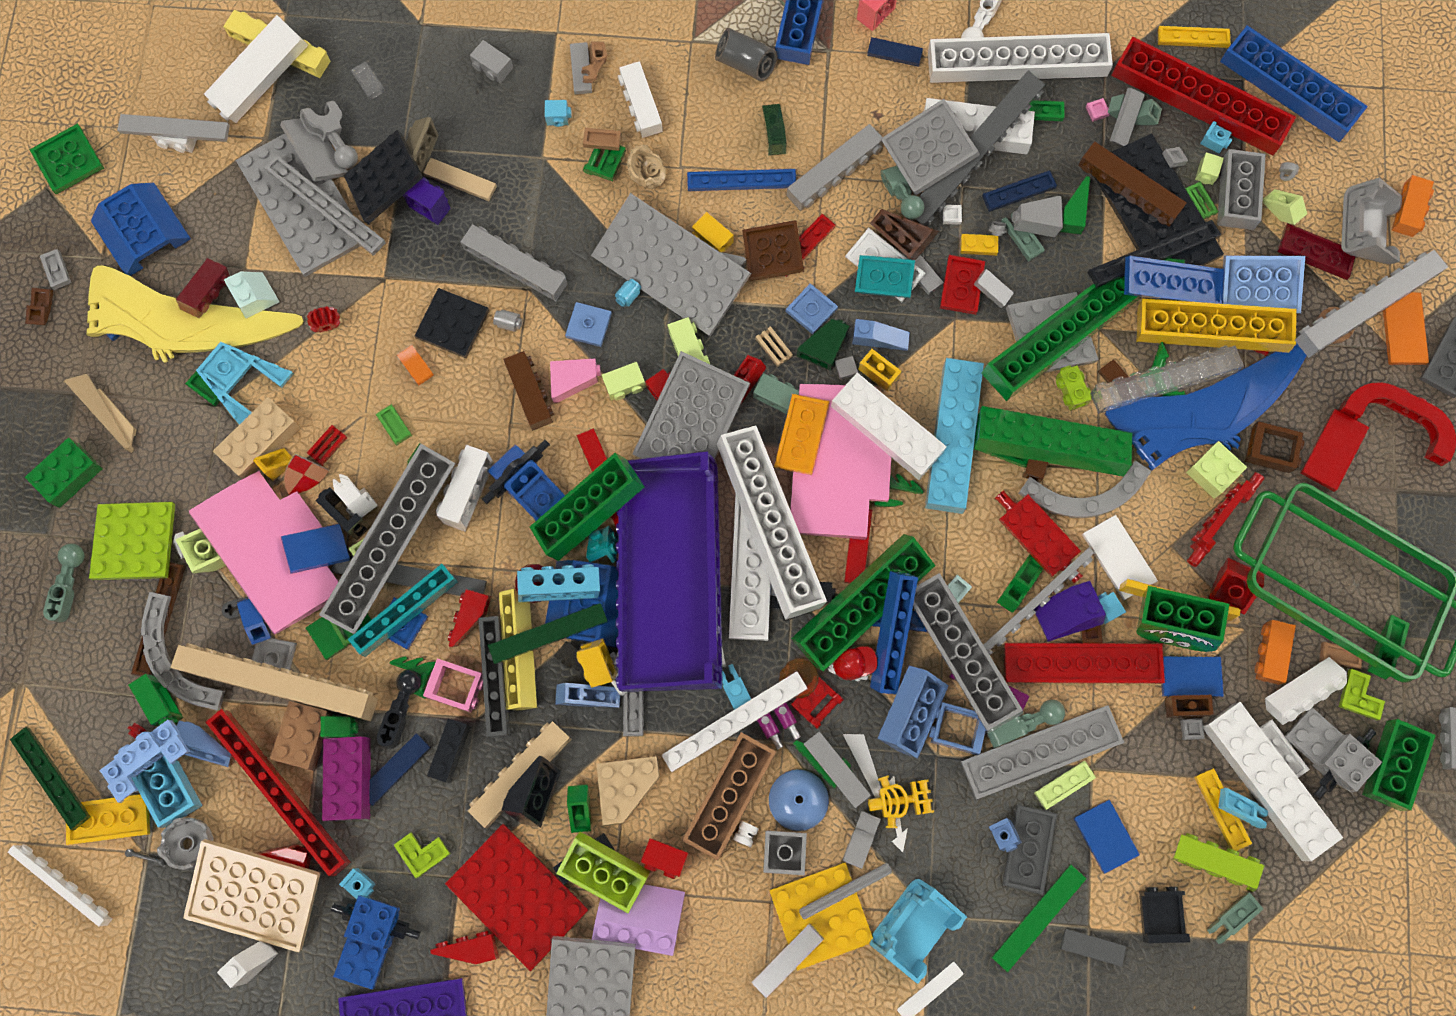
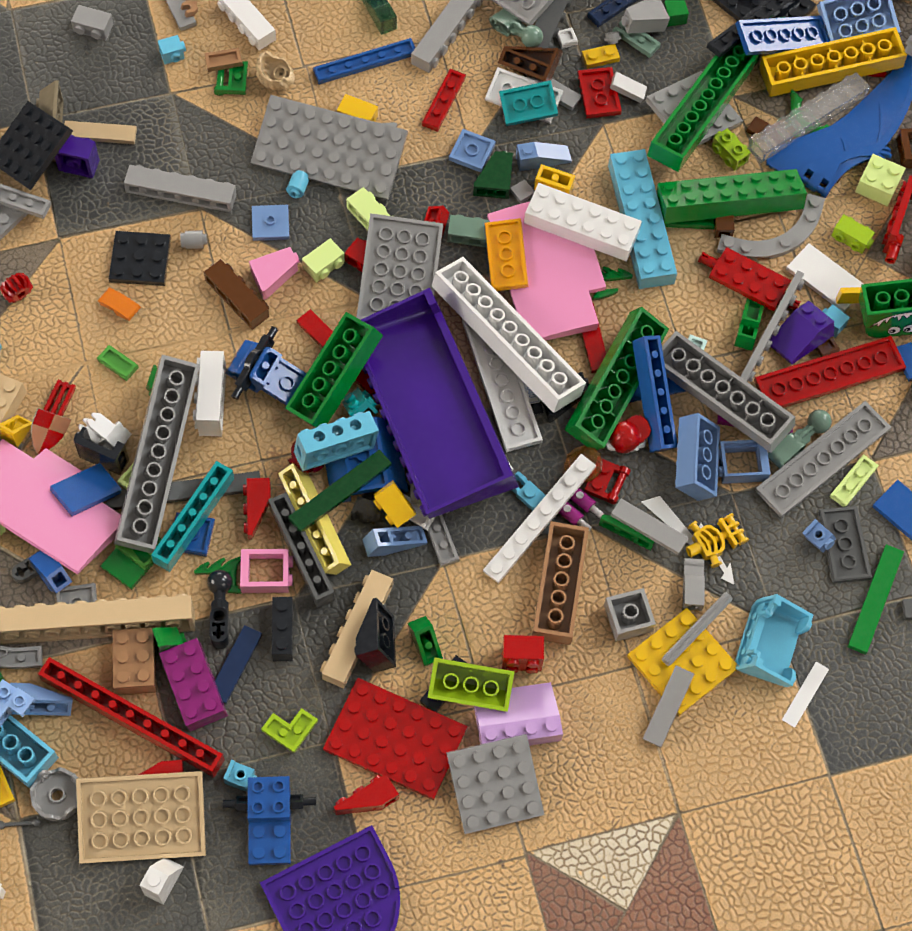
camera: 25 degrees left, 10 degrees down
(625, 786) = (460, 606): tan brick -> none
(745, 834) = (587, 612): white wheel -> none
(764, 334) = (452, 190): tan tile -> none
(773, 250) = (418, 110): reddish brown plate -> none
(787, 810) = (617, 579): medium blue dish -> none
(1165, 521) = (853, 234): none -> lime brick

